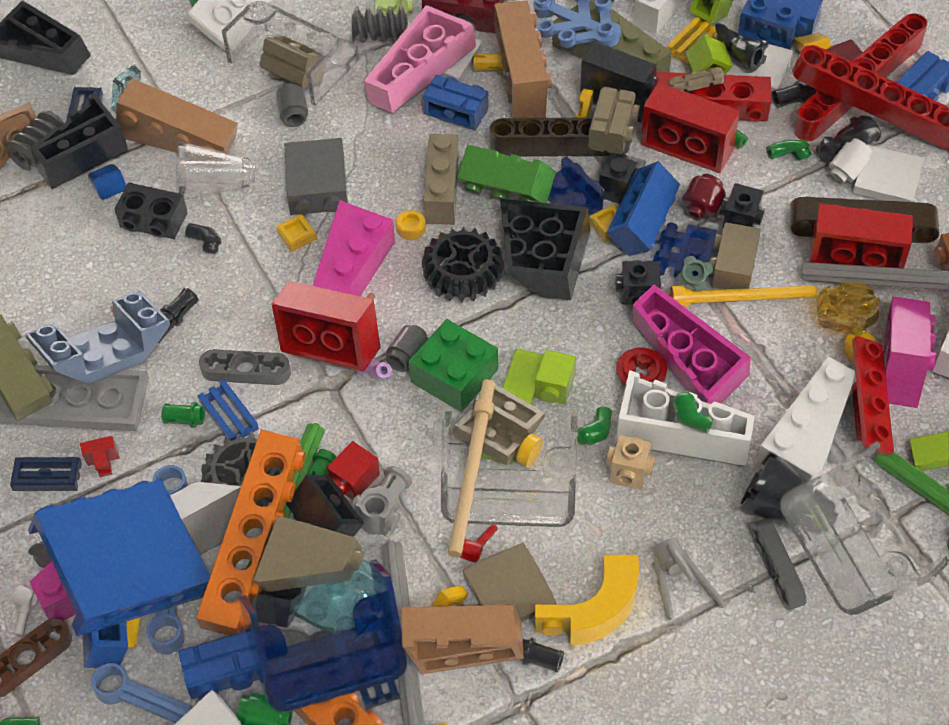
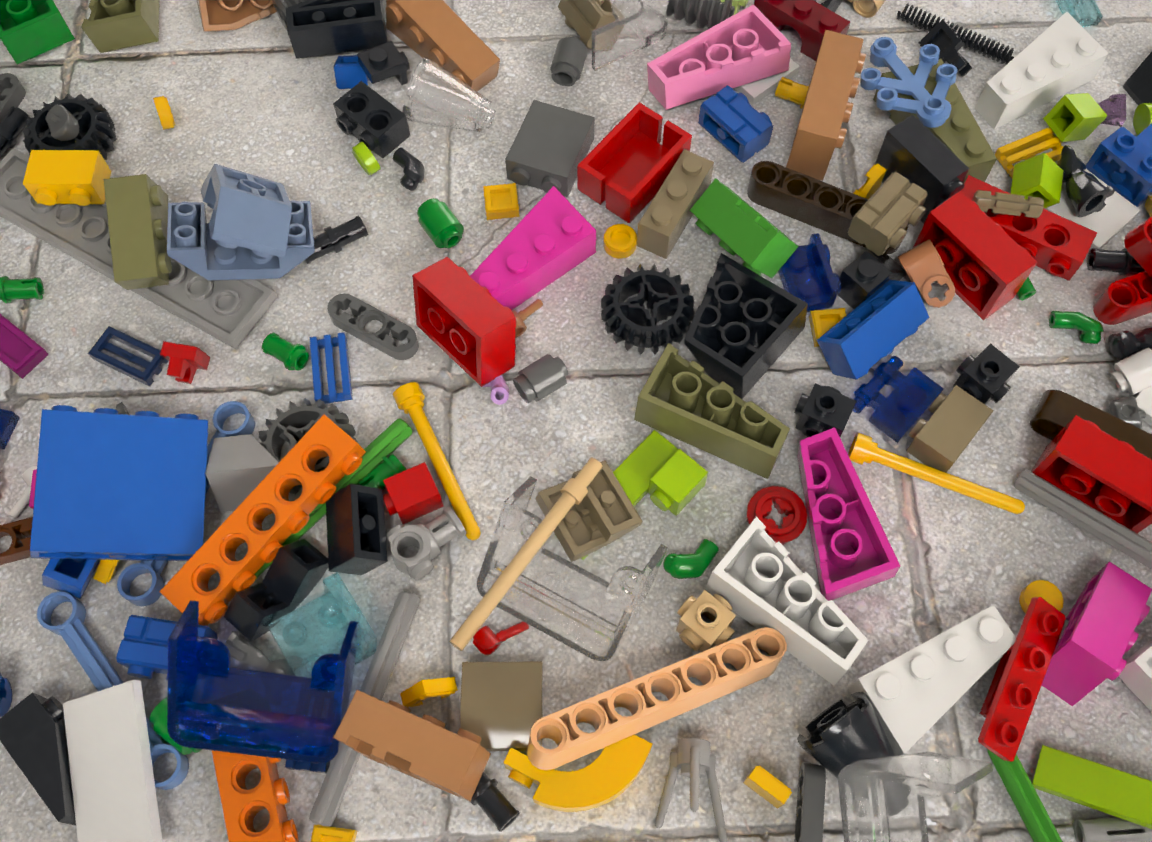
camera: 25 degrees right, 10 degrees up
(100, 310) = (247, 211): none -> sand blue slope
(137, 162) = (384, 62): none -> black bracket
(163, 242) = (365, 158): none -> lime tile
(257, 267) = (440, 223): none -> green brick
(306, 556) = (297, 577): dark tan slope -> none
(309, 406) = (410, 400): none -> yellow piece
(391, 166) = (631, 163): none -> red piece
(453, 365) = (577, 420): green brick -> none
(529, 450) = (605, 555): yellow tile -> none
(555, 318) = (709, 415): none -> olive wedge
(623, 522) = (648, 710): none -> light nougat beam
(659, 147) = (924, 268): none -> nougat piece
(688, 415) = (790, 605): green arm -> none
(692, 264) = (902, 430): sand green plate -> none
(703, 196) = (949, 342): dark red head -> none
(735, 550) = (768, 786): none -> yellow tile
(833, 312) = (1049, 569): clear yellow plate -> none
(854, 191) = (1127, 410): none -> dark grey piece

